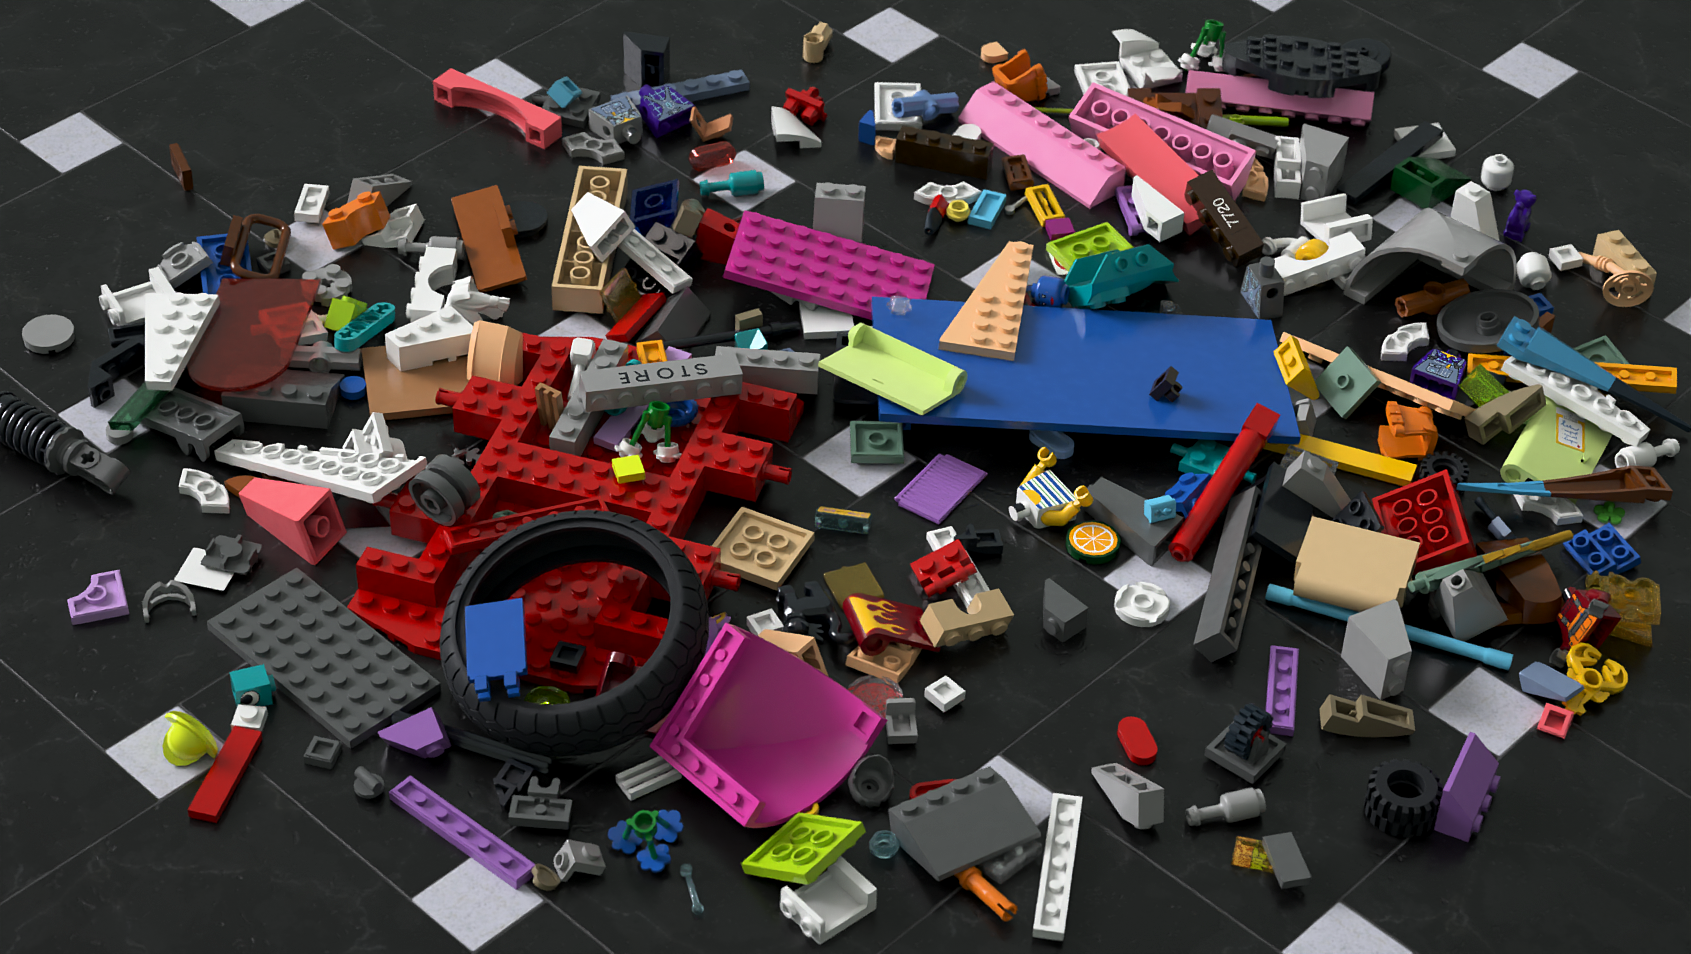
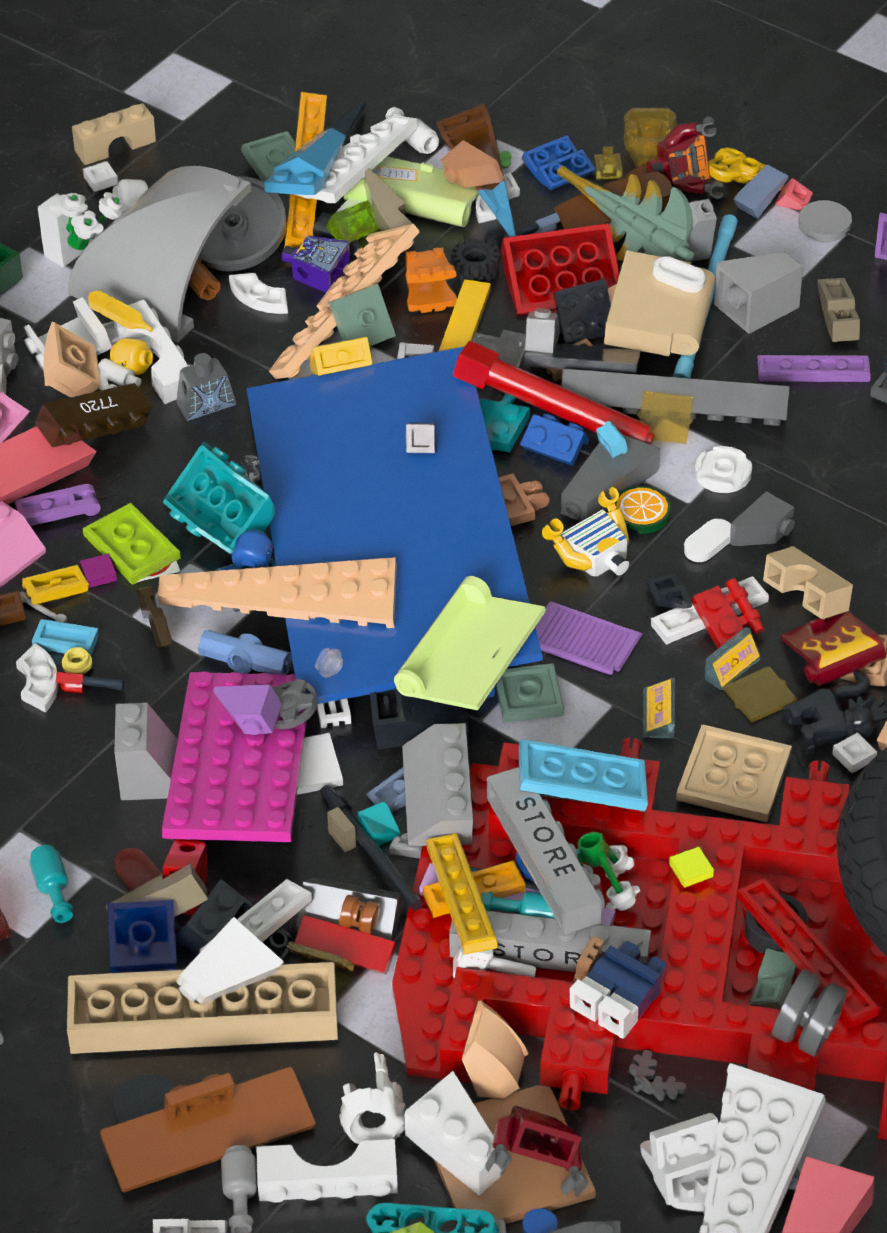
camera: 95 degrees left, 5 degrees up
(406, 368) = (541, 1139): none -> dark red torso
(512, 407) = (618, 988): none -> hips
(628, 342) = (461, 894): none -> yellow tile
(649, 312) = (359, 914): none -> dark orange wheel
(729, 410) = (582, 775): none -> medium azure tile
(858, 261) = (251, 707): none -> medium lavender slope
(866, 289) = (293, 701): none -> dark grey wheel
(891, 567) = (732, 659): none -> slope
(954, 285) = (244, 653): none -> medium blue piece
(983, 240) = (155, 614): none -> dark brown tile
(1039, 570) = (707, 540): none -> white tile
(1112, 459) = (522, 499): none -> nougat hinge
(1156, 212) = (81, 475): white slope -> none
(1205, 564) = (667, 415): none -> clear yellow piece
(1300, 212) = (70, 362): none -> light nougat slope
(1346, 229) = (116, 311): none -> yellow piece
(1381, 572) = (679, 274): none -> white tile
(1464, 195) = (85, 227): none -> white plant
(1514, 736) = (825, 220): none -> light grey tile
(1520, 215) = (34, 196): dark purple animal -> none
(1569, 467) = (470, 166): none -> nougat slope
(1624, 281) = (157, 125): light nougat dish -> none

